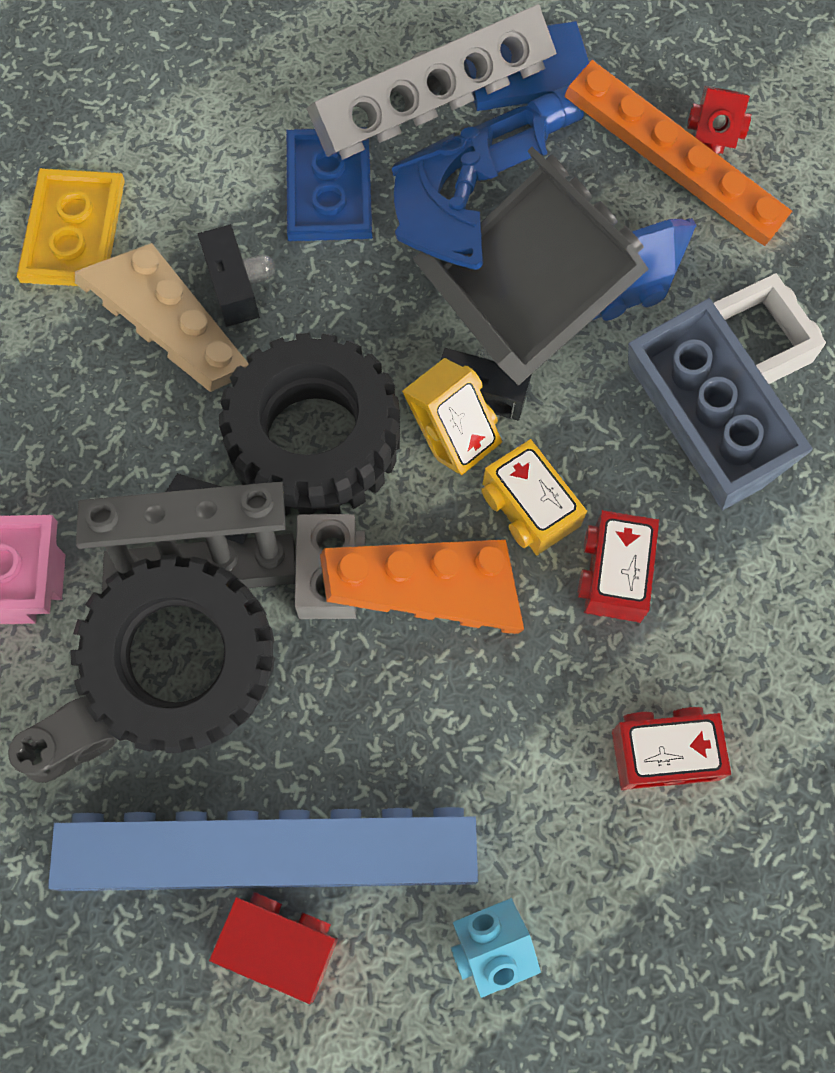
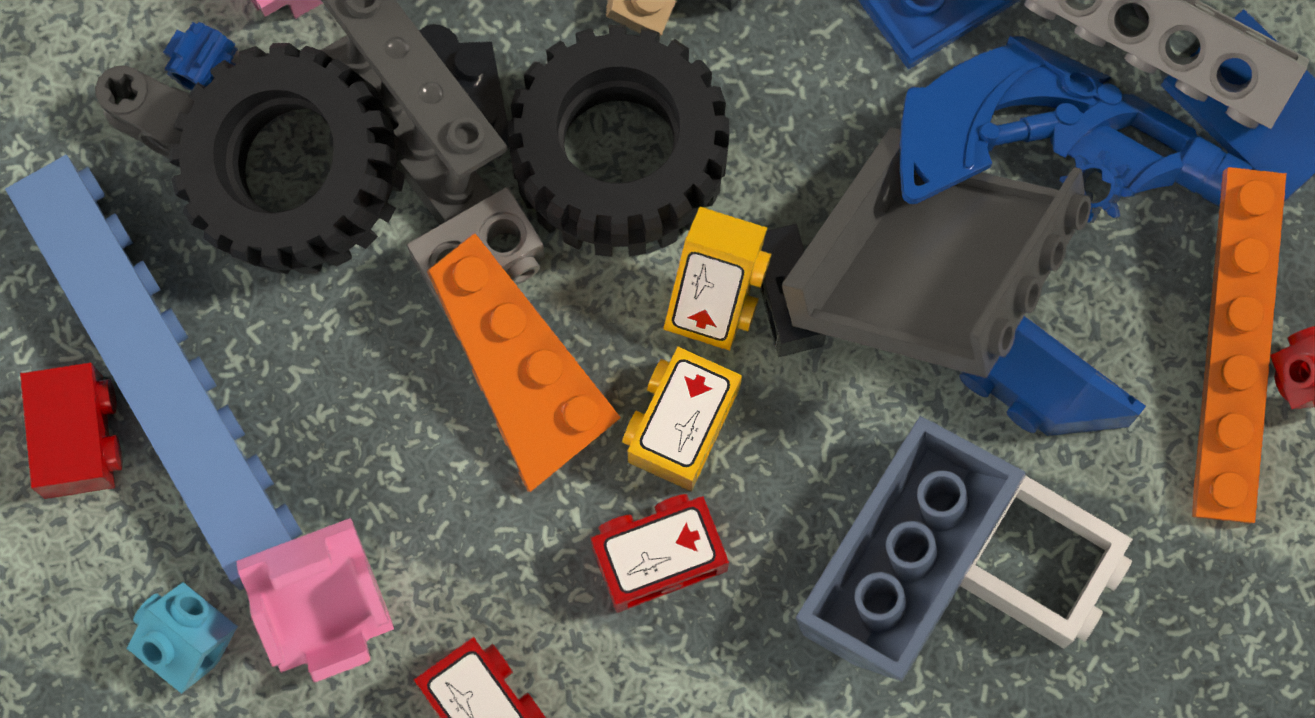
camera: 60 degrees right, 5 degrees up
(46, 680) = (196, 54): none -> blue gear
(518, 162) = (1109, 175): none -> blue gear
(527, 823) = (316, 601): none -> bright pink panel

